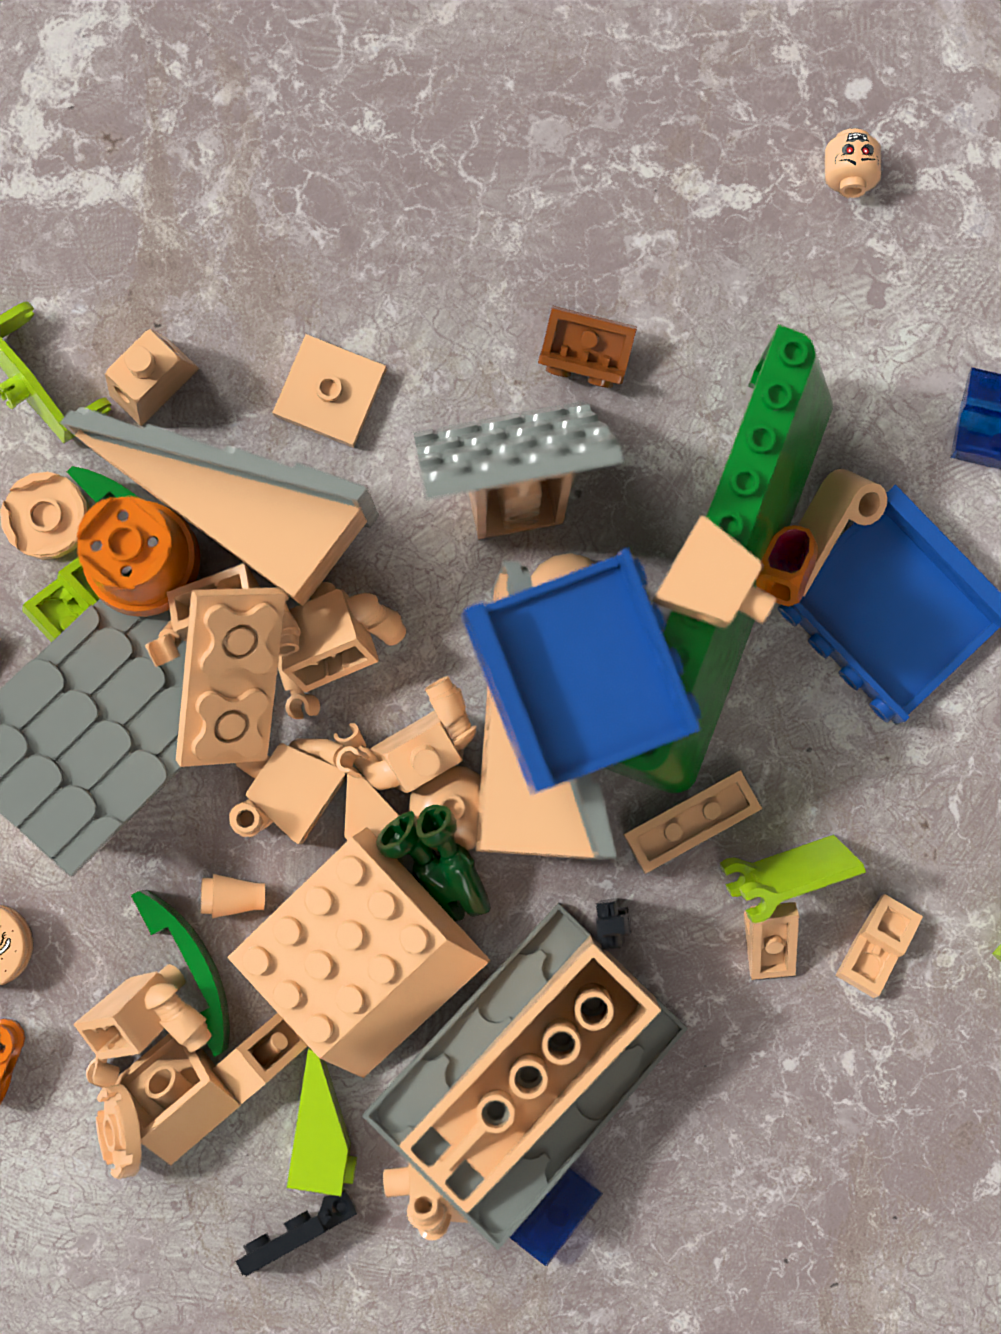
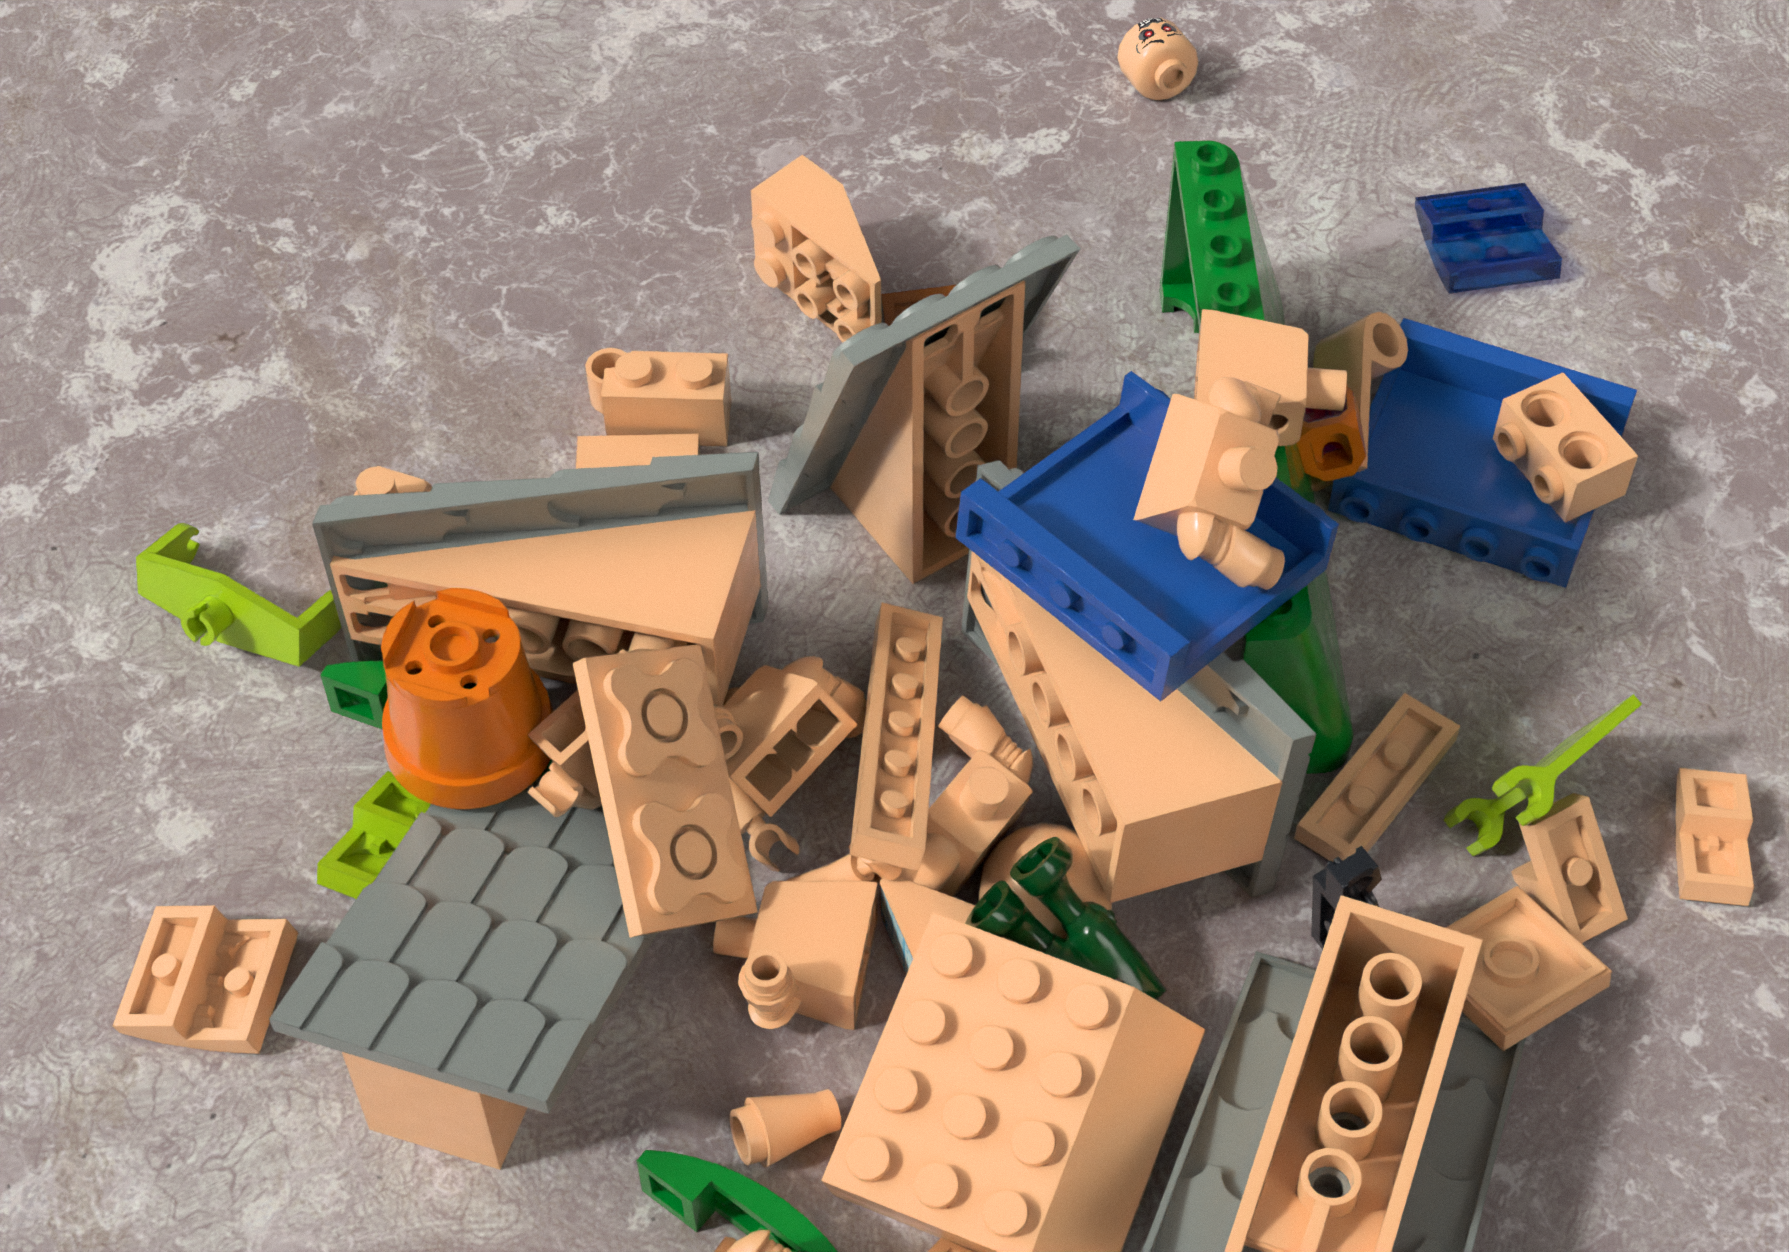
camera: 20 degrees left, 30 degrees down
(43, 515) = (305, 762): light nougat tile -> none
(372, 327) = (662, 393): none -> light nougat hinge
(399, 681) = (898, 739): none -> light nougat plate
(521, 237) = (815, 248): none -> light nougat slope
(632, 669) = (1212, 478): none -> light nougat torso
(703, 981) = (1525, 969): none -> light nougat plate
(957, 634) = (1564, 447): none -> light nougat brick

